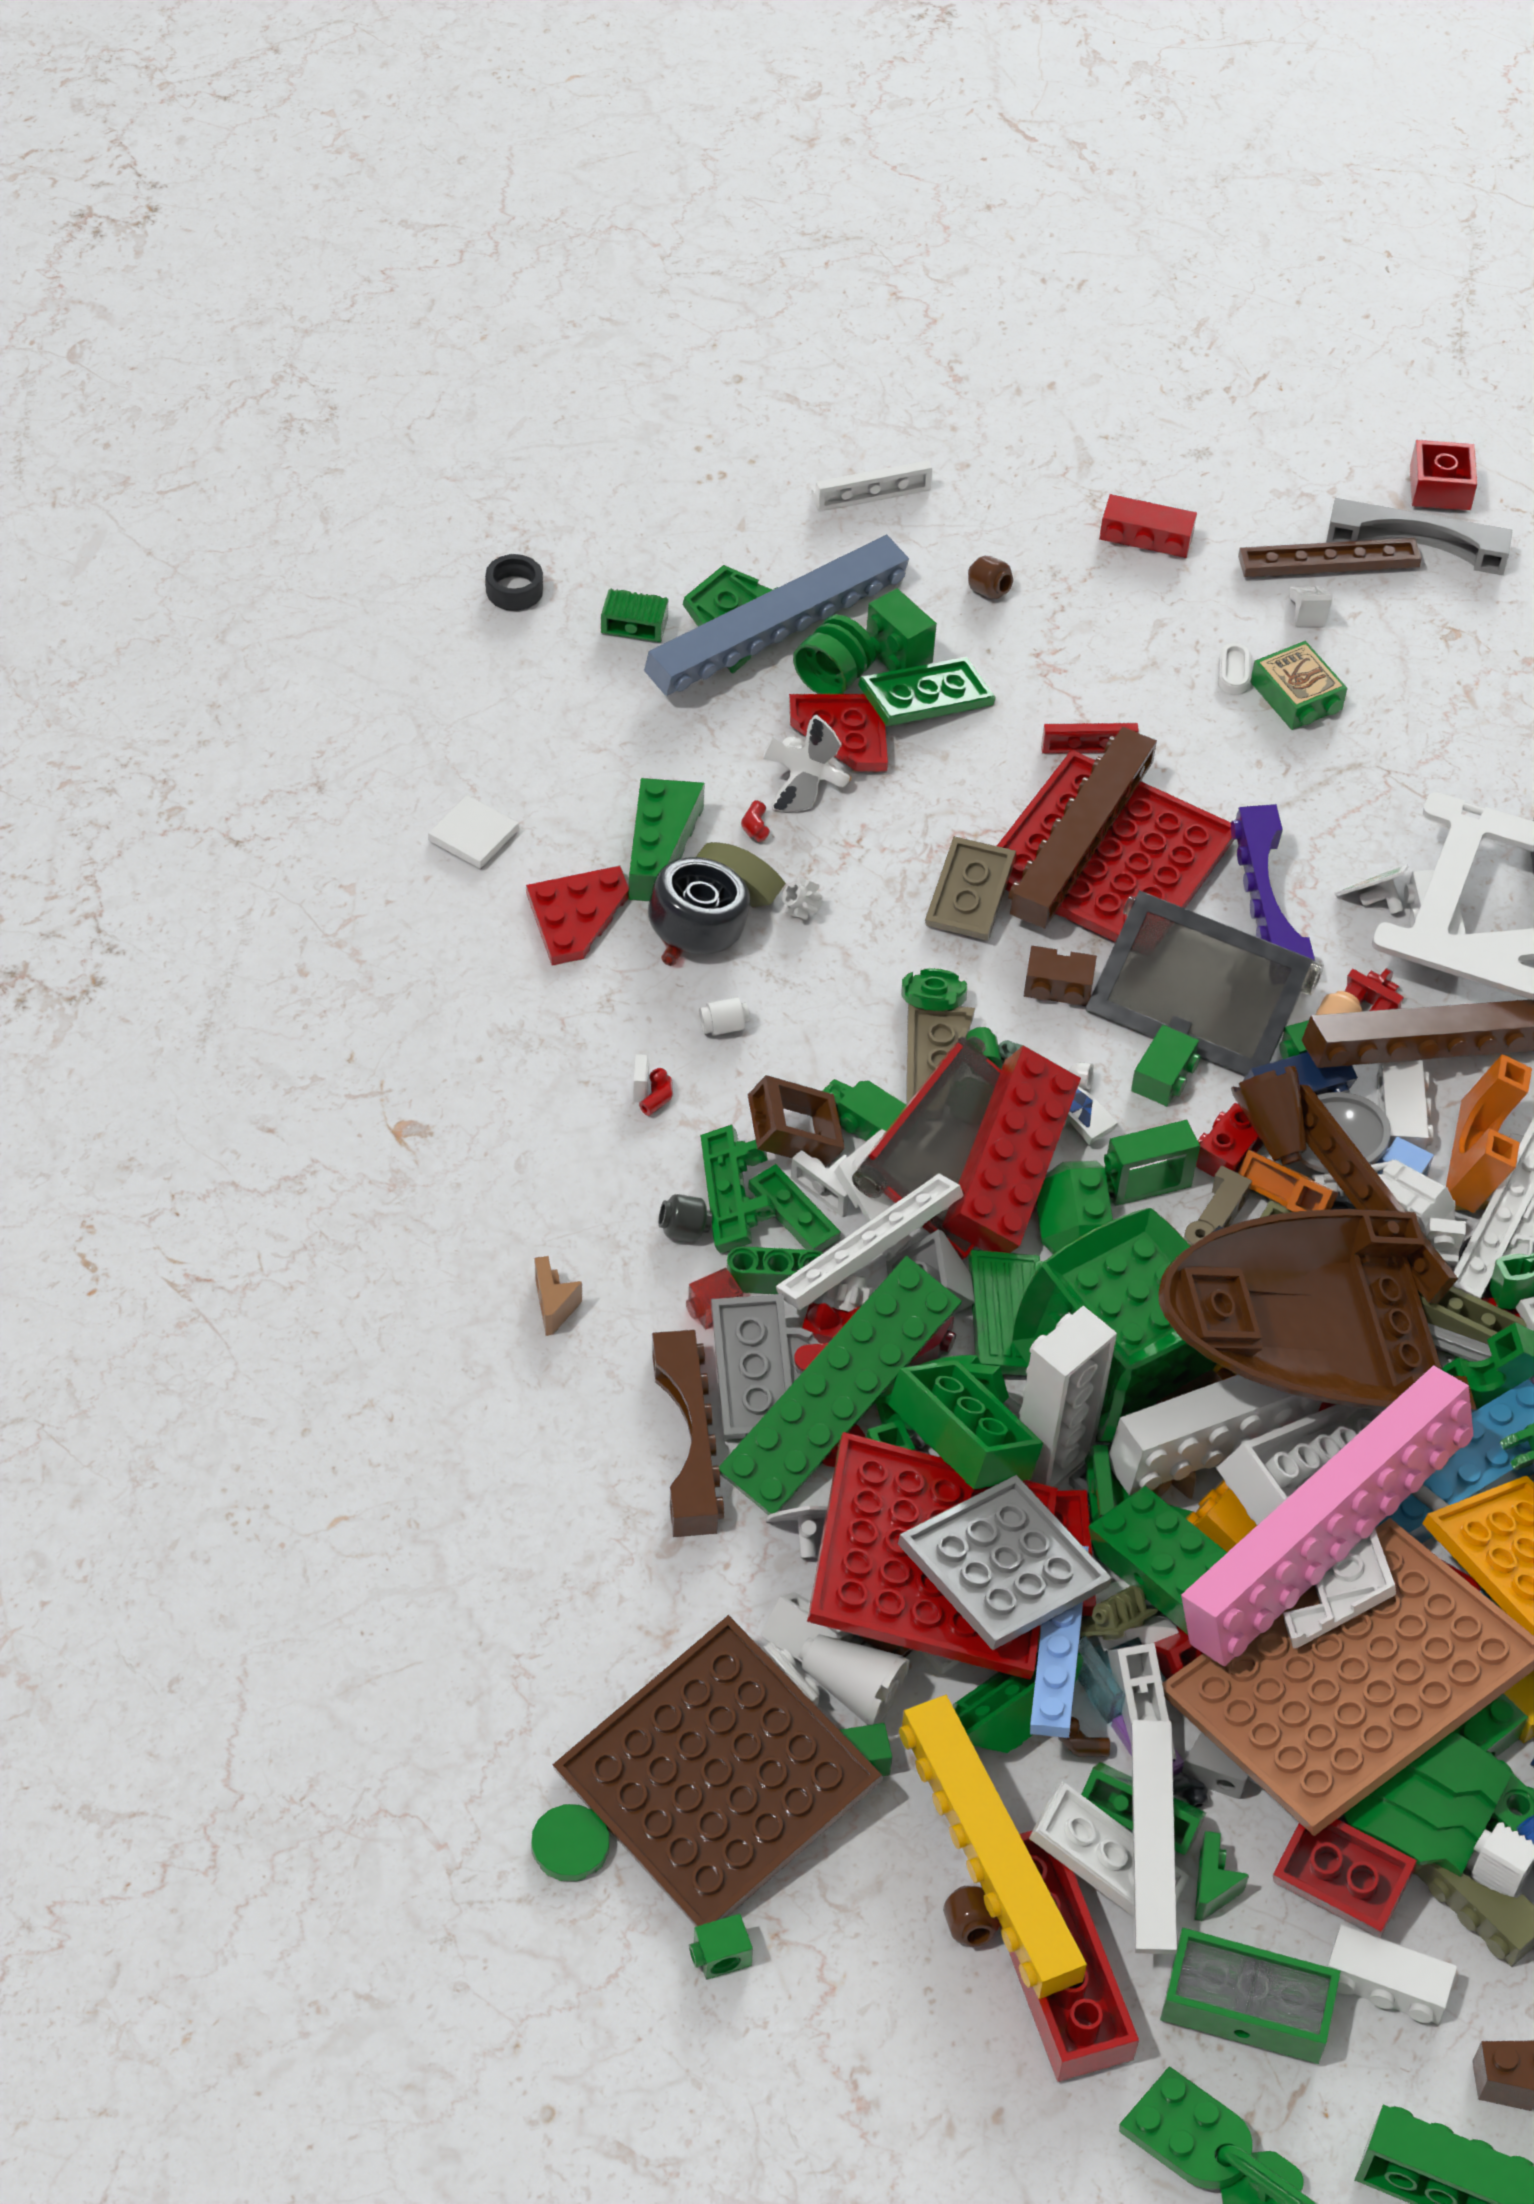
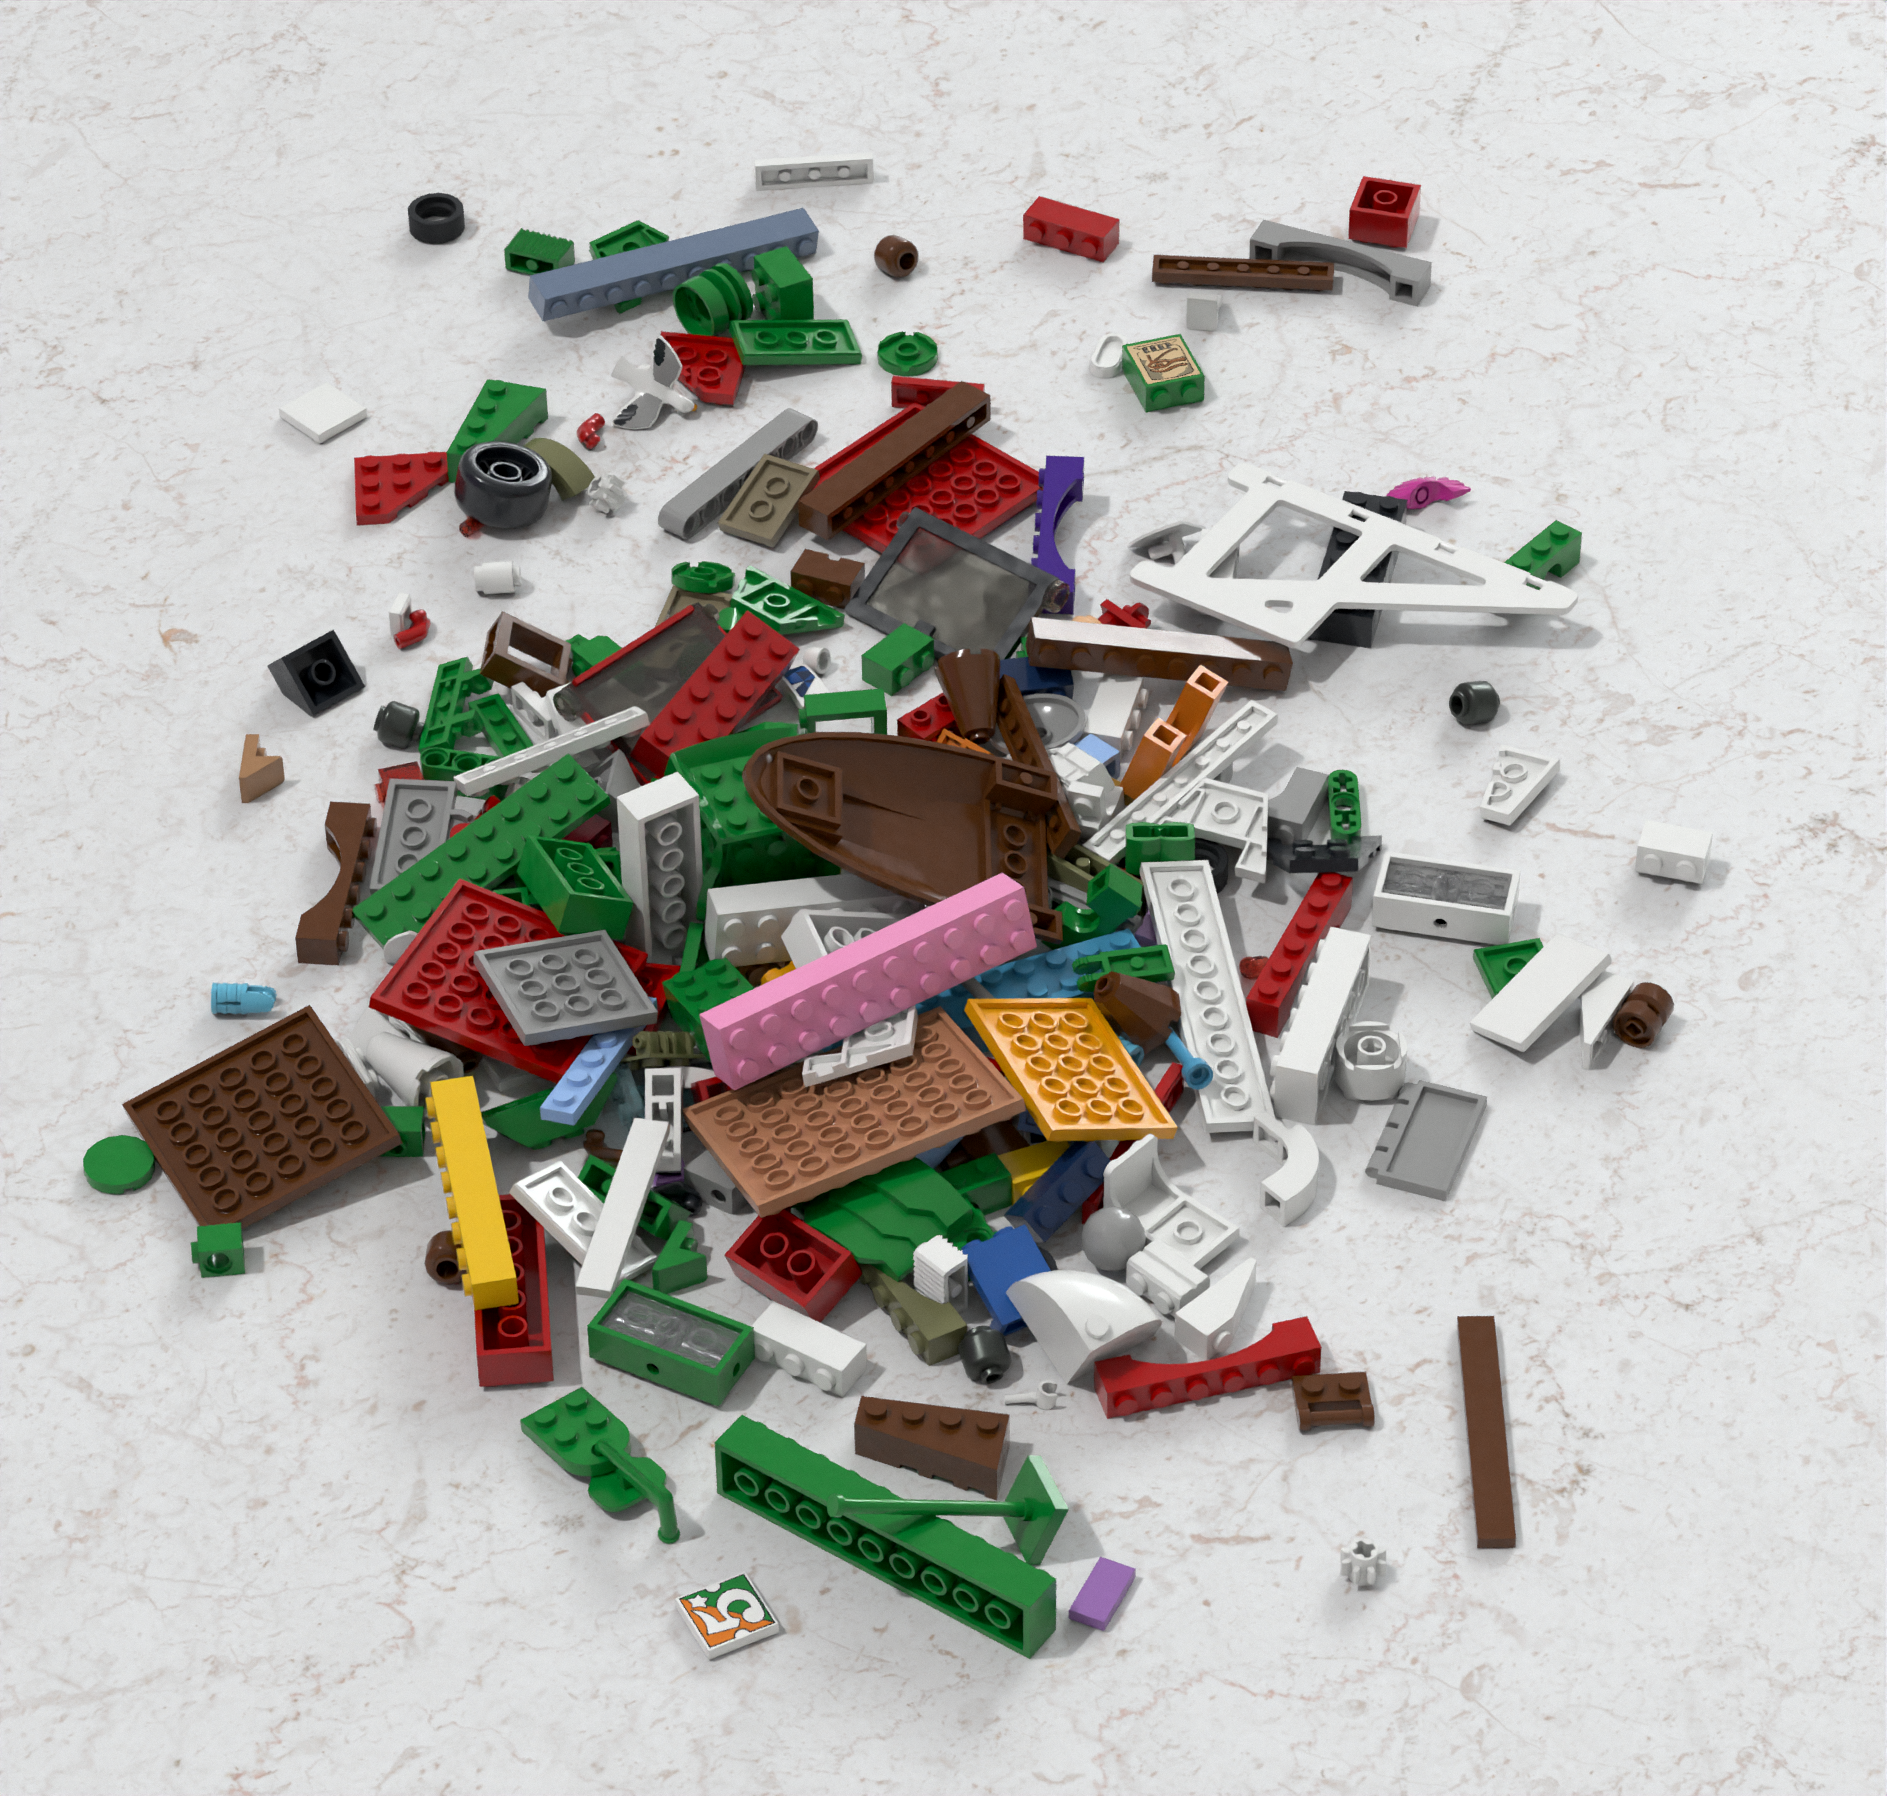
camera: 15 degrees right, 10 degrees down
(577, 1164) = (317, 674): none -> black slope
(635, 1599) = (241, 998): none -> medium azure hinge
(923, 857) = (718, 486): none -> light grey beam
(1023, 1014) = (782, 605): none -> green wing
(1037, 689) = (907, 354): none -> green tile

